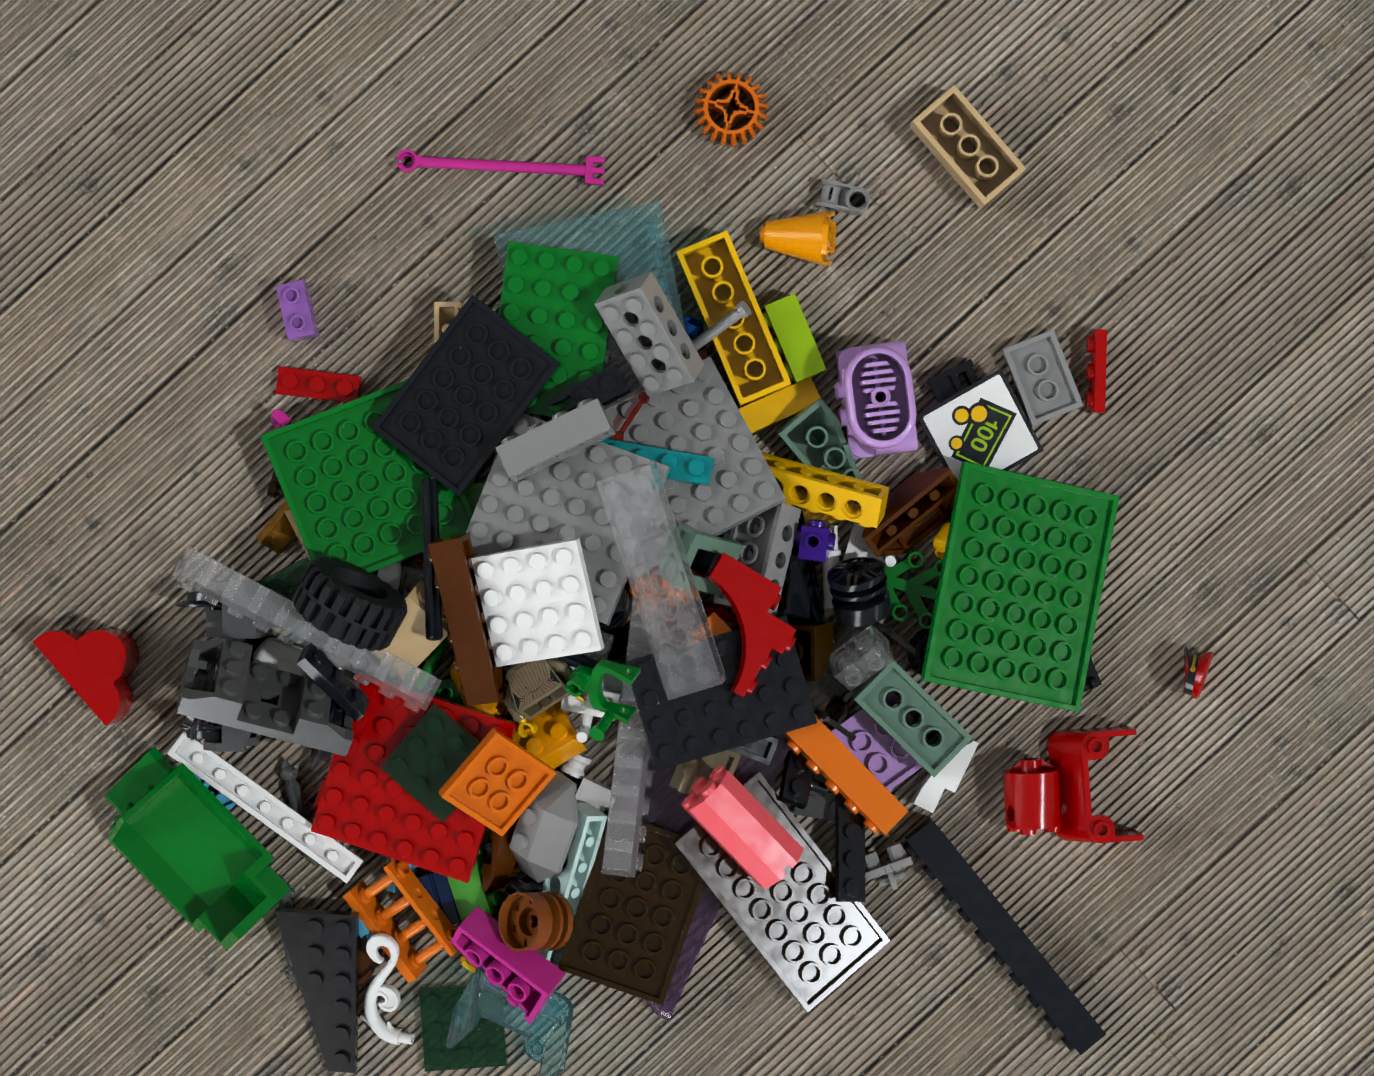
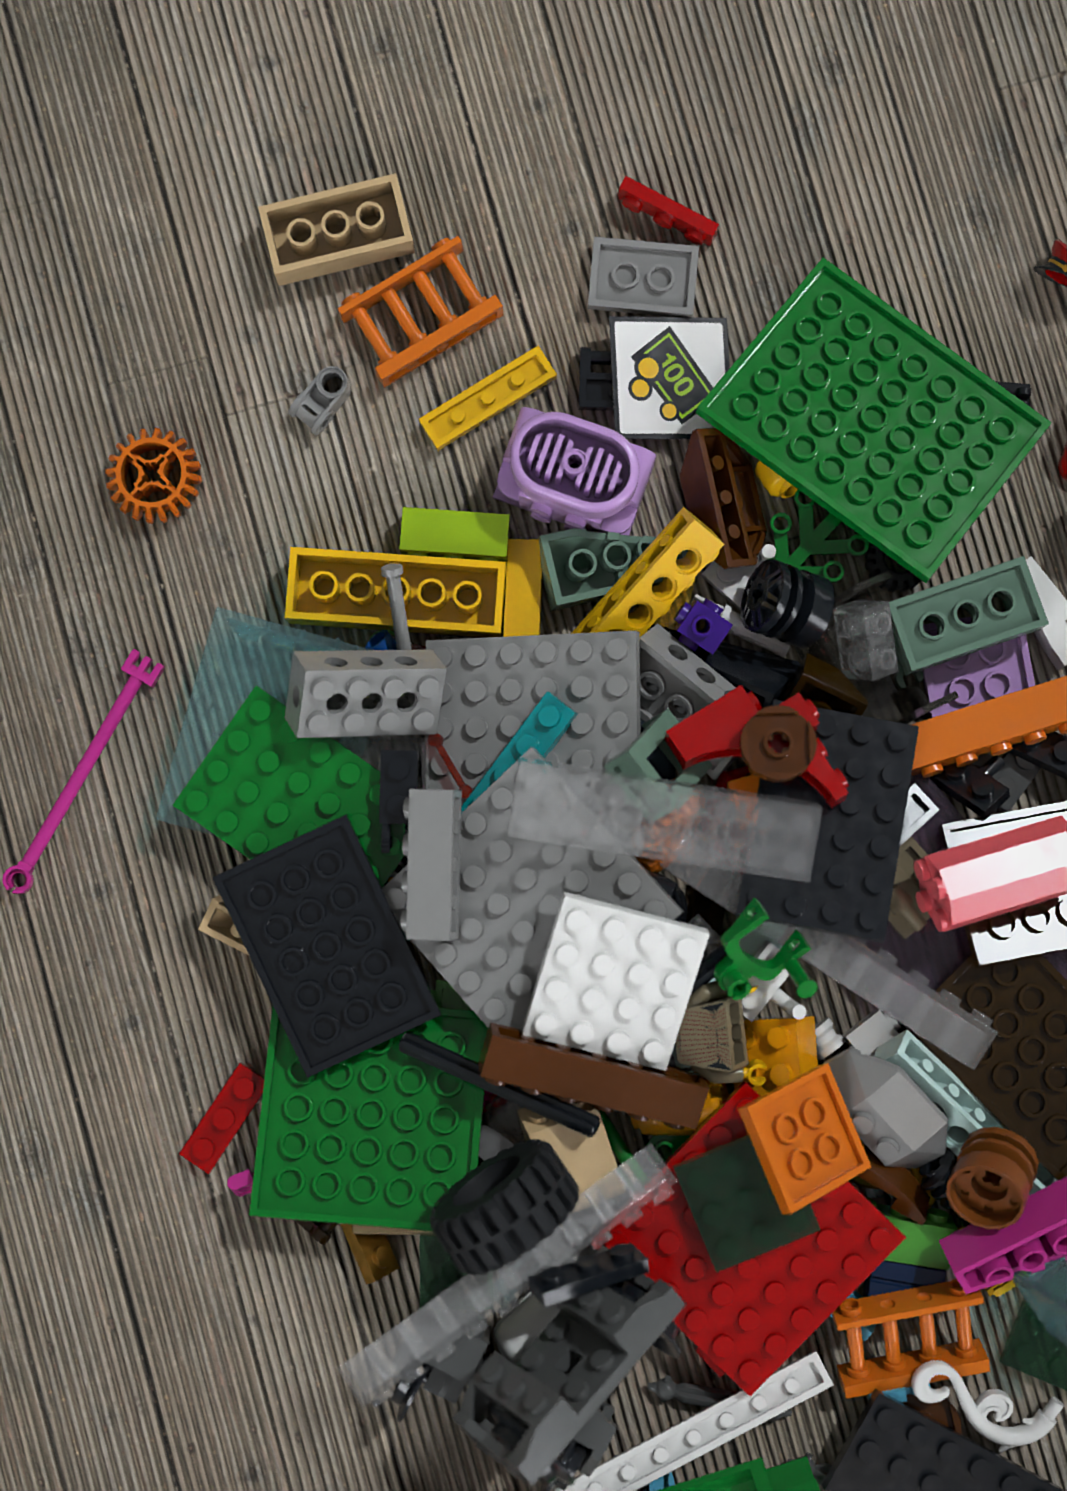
camera: 55 degrees left, 5 degrees down
(297, 311) = (125, 1097): medium lavender brick -> none
(736, 627) = (793, 729): none -> reddish brown plate
(802, 236) = (341, 467): light orange cone -> none
(902, 312) = (488, 398): none -> yellow plate
(916, 247) = (451, 328): none -> orange fence

